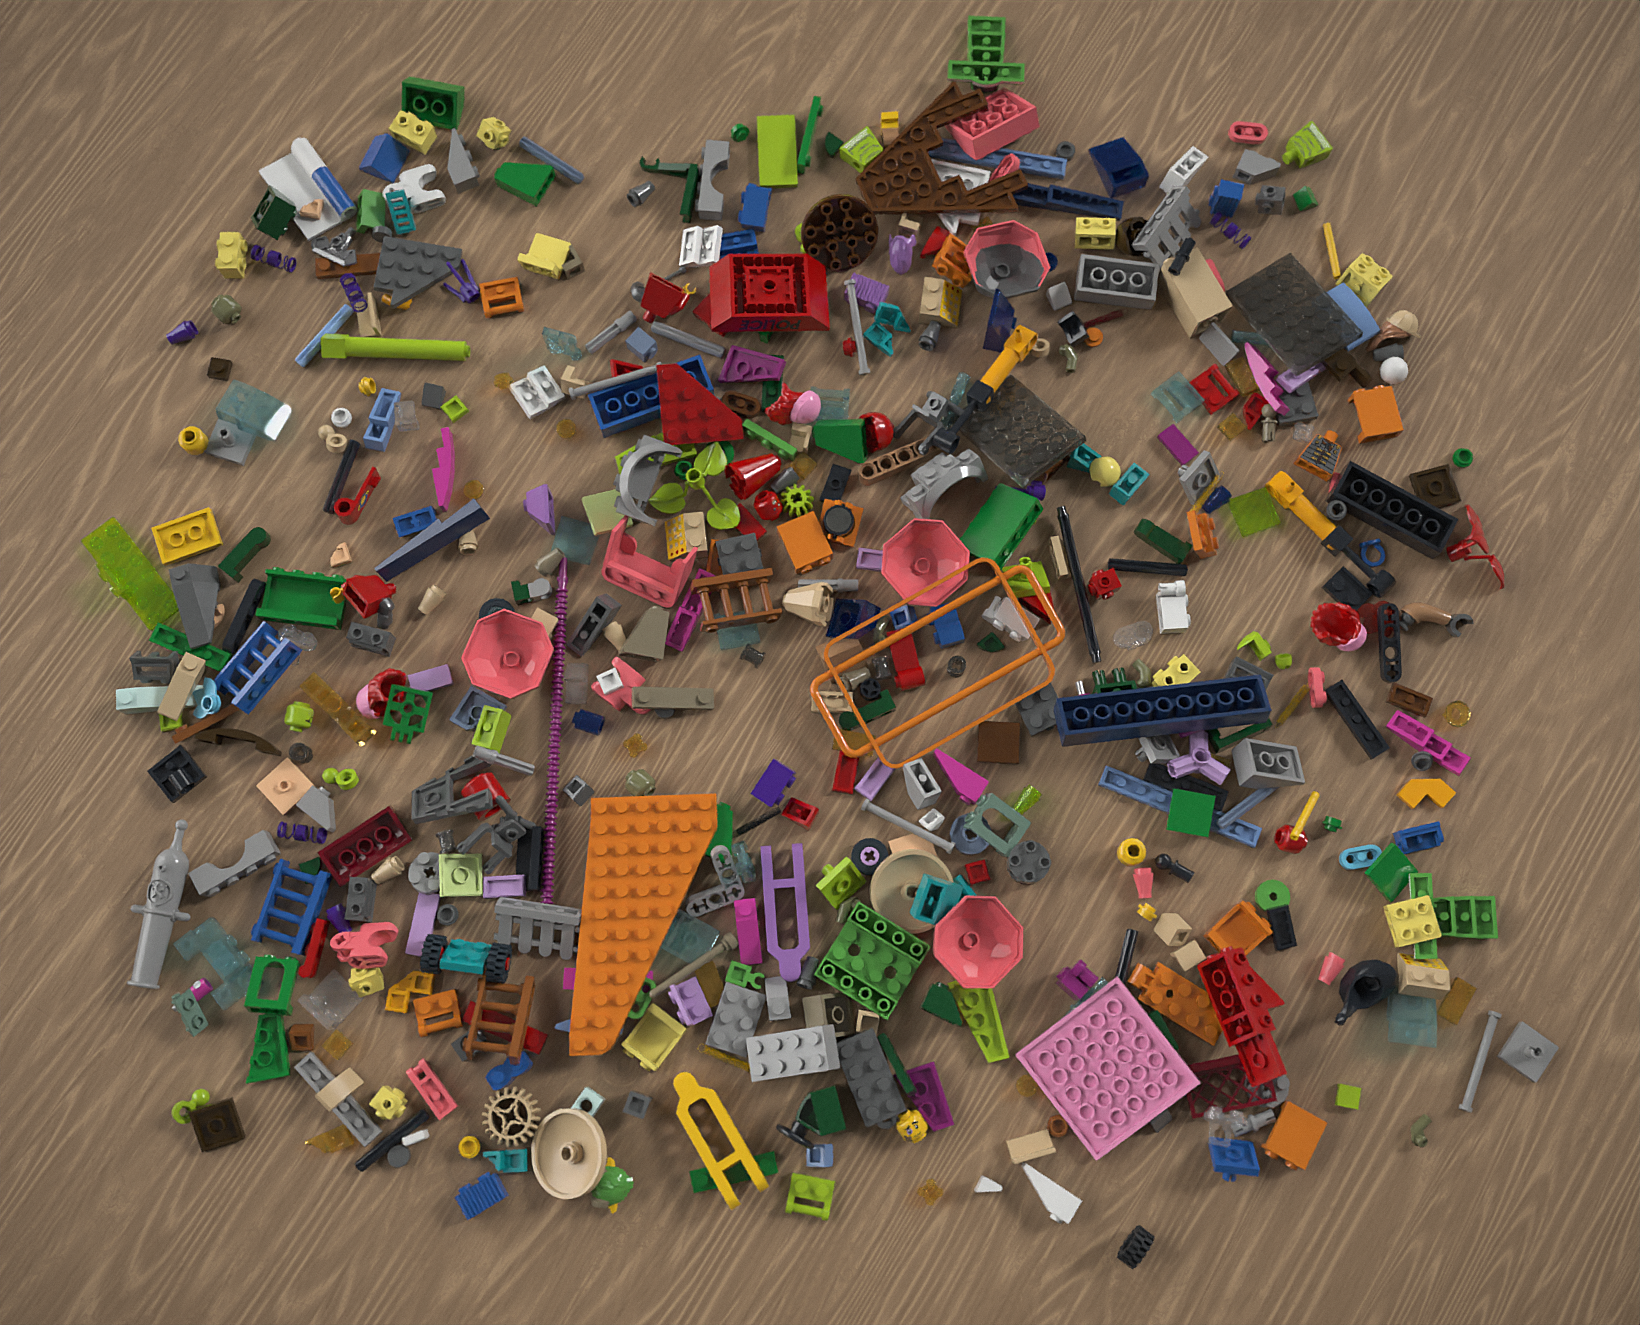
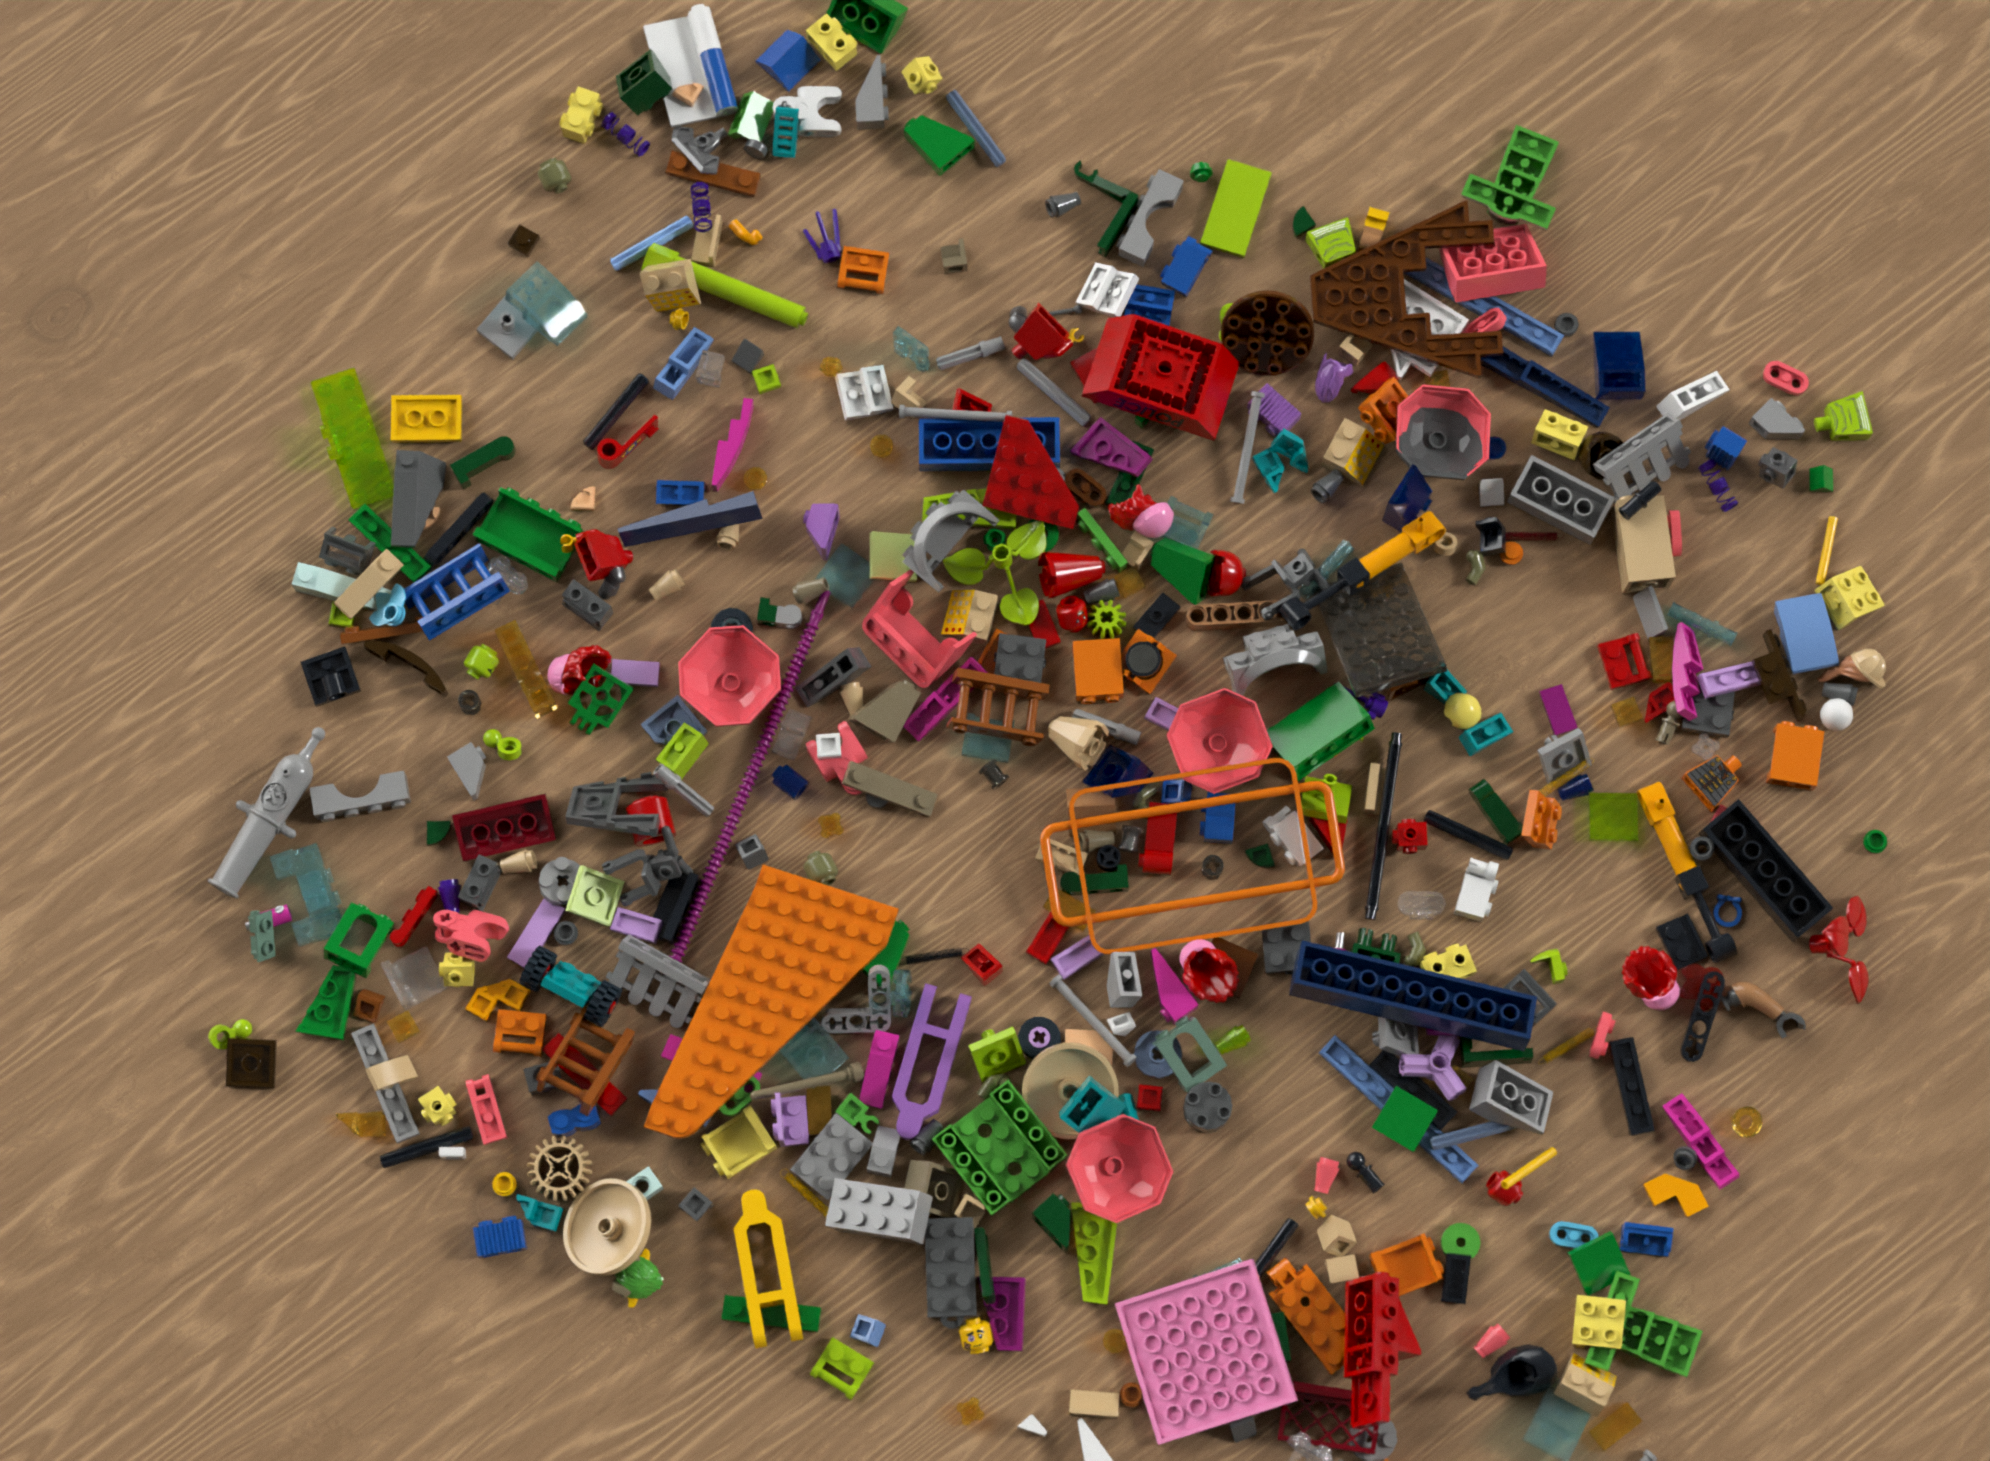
camera: 20 degrees right, 0 degrees up
(183, 332) = (499, 185): dark purple cone -> none
(193, 440) = (469, 313): yellow head -> none
(285, 786) = (440, 732): light nougat plate -> none
(301, 833) = (441, 788): dark purple piece -> none
(313, 903) = (428, 866): blue fence -> none
(334, 442) = (622, 371): tan plate -> none
(341, 417) = (638, 344): white plate -> none
(349, 361) = (670, 285): none -> tan slope
(399, 1155) = (428, 1165): dark grey tile -> none
(412, 267) = (776, 201): dark grey wing -> none
(446, 841) = (592, 855): clear smoke bush -> none
(545, 256) = (930, 239): light yellow bracket -> none
(548, 620) = (786, 655): tan panel -> none
(641, 345) = (1000, 381): sand blue brick -> none
(773, 783) = (965, 921): dark purple brick -> none
(815, 112) = (1296, 178): green plate -> none
(818, 1112) = (883, 1283): dark green piece -> none
(849, 347) = (1231, 466): red plate -> none
(987, 751) = (1208, 971): none -> red hair
(1076, 980) = (1209, 1248): magenta hinge -> none
(1137, 850) = (1329, 1132): yellow head -> none
(1182, 392) = (1586, 653): clear light blue plate -> none
(1283, 661) = (1577, 992): lime hinge -> none
(1293, 314) = (1747, 609): clear smoke plate -> none
(1332, 824) = (1557, 1189): green plate -> none
(1409, 700) = (1699, 1087): reddish brown plate -> none
(1435, 486) = (1830, 863): dark brown tile -> none

